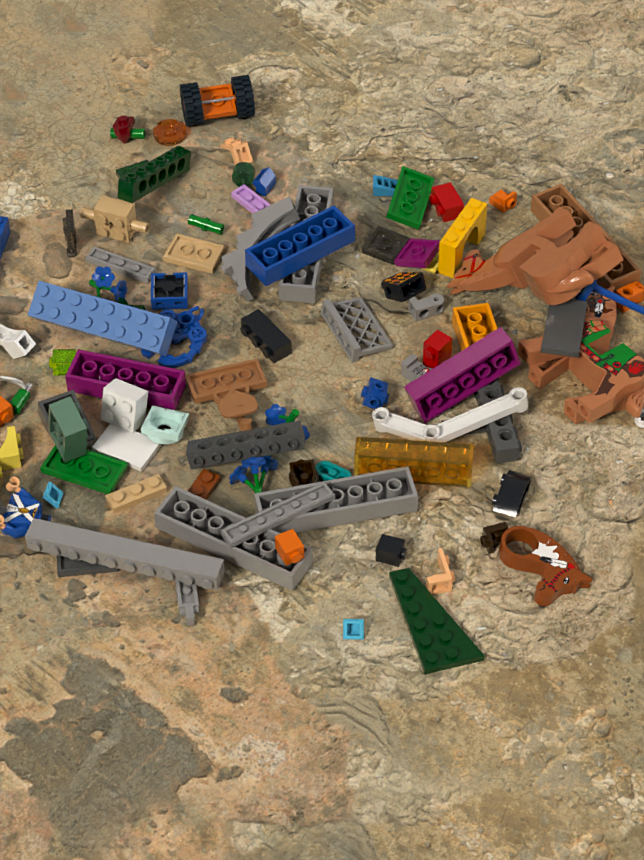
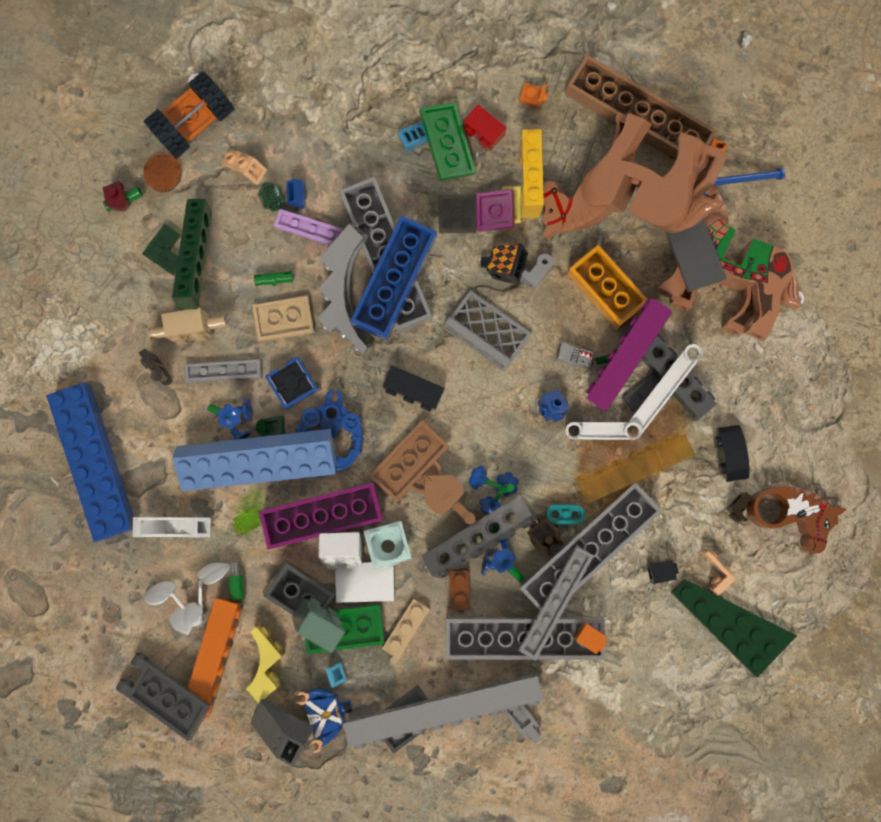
camera: 30 degrees left, 35 degrees up
(353, 629) = (676, 668): medium azure slope -> none
(437, 349) = (583, 329): red brick -> none

